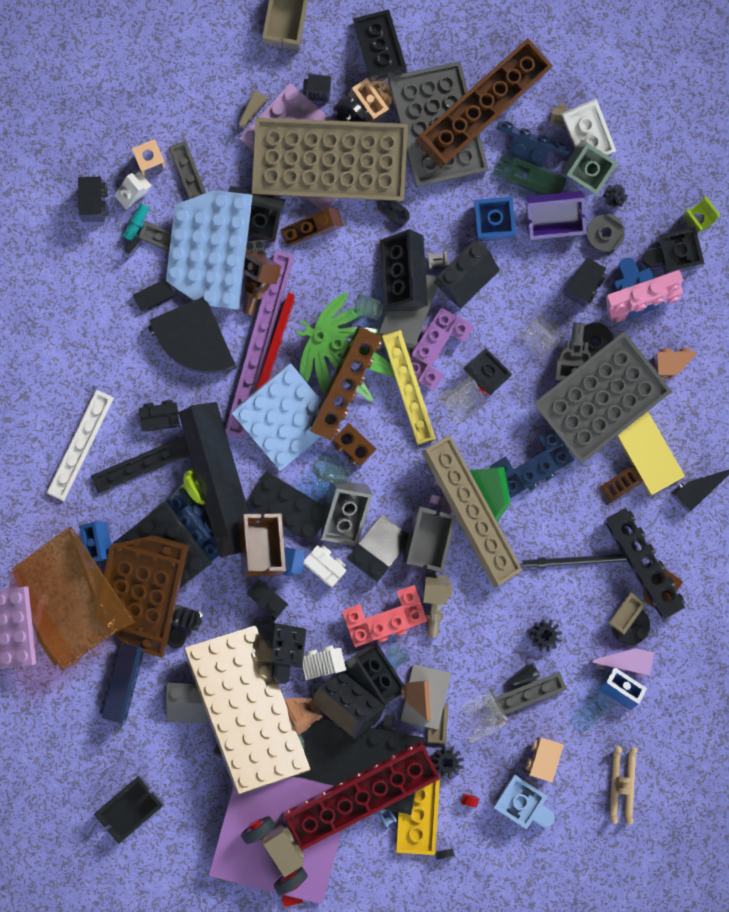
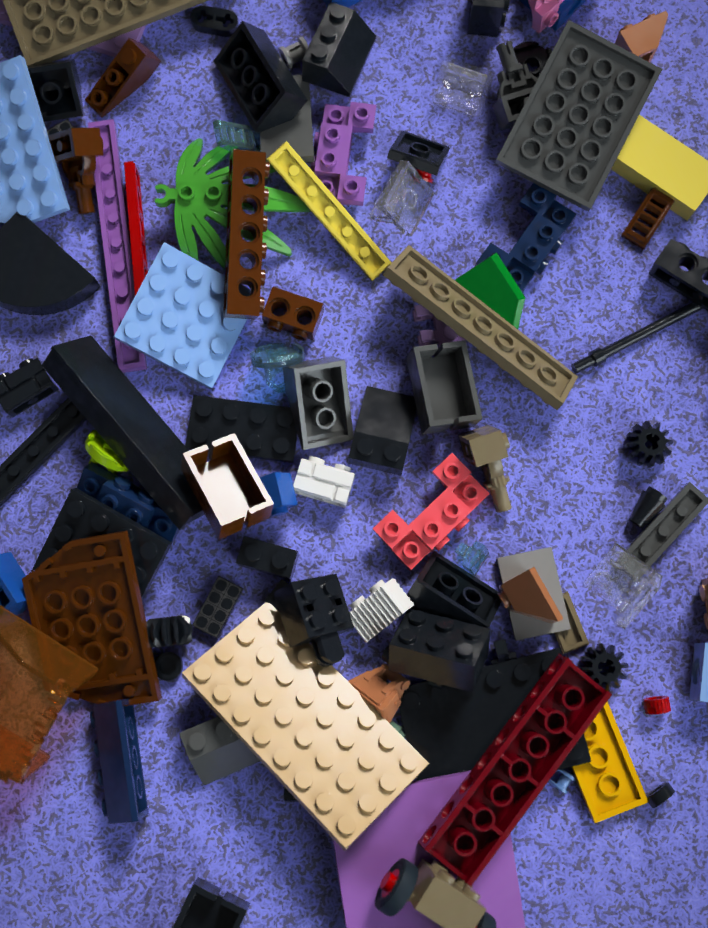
camera: 20 degrees left, 5 degrees down
(222, 615) = (217, 607): none -> black tile

